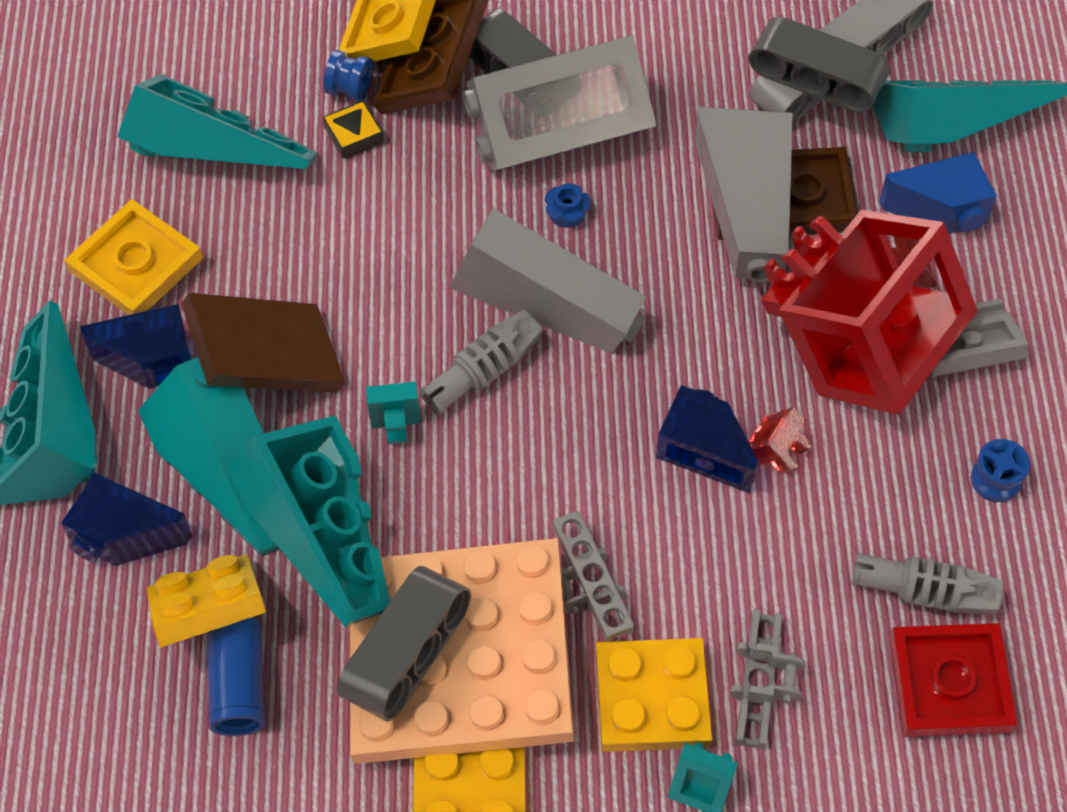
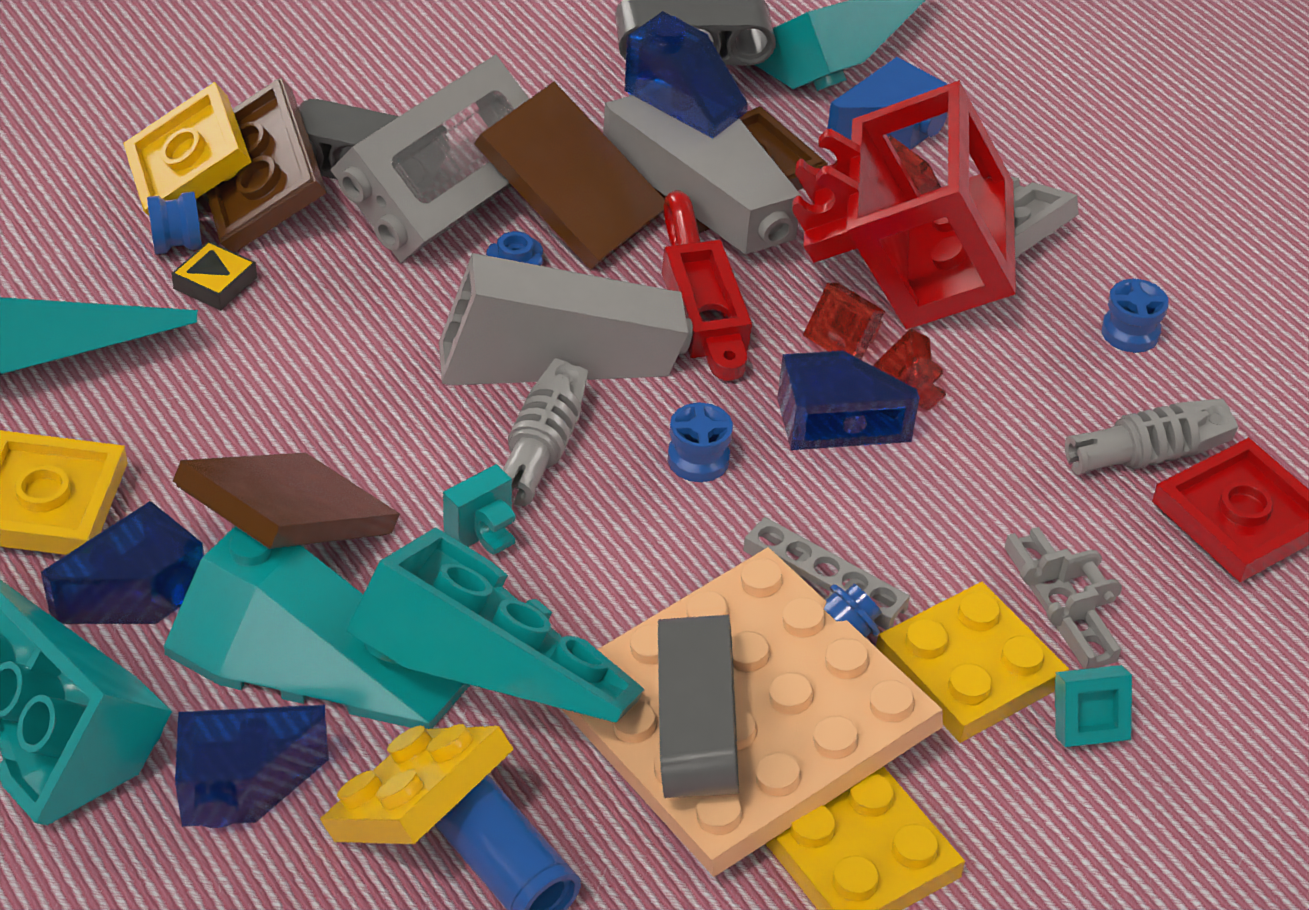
camera: 35 degrees left, 15 degrees down
(579, 619) = (855, 608): none -> blue plate
(580, 412) = (700, 442): none -> blue wheel
(643, 155) = (571, 174): none -> reddish brown tile
(678, 291) = (706, 283): none -> red piece
(761, 112) = (682, 75): none -> clear blue slope
(762, 374) = (844, 321): none -> clear red tile

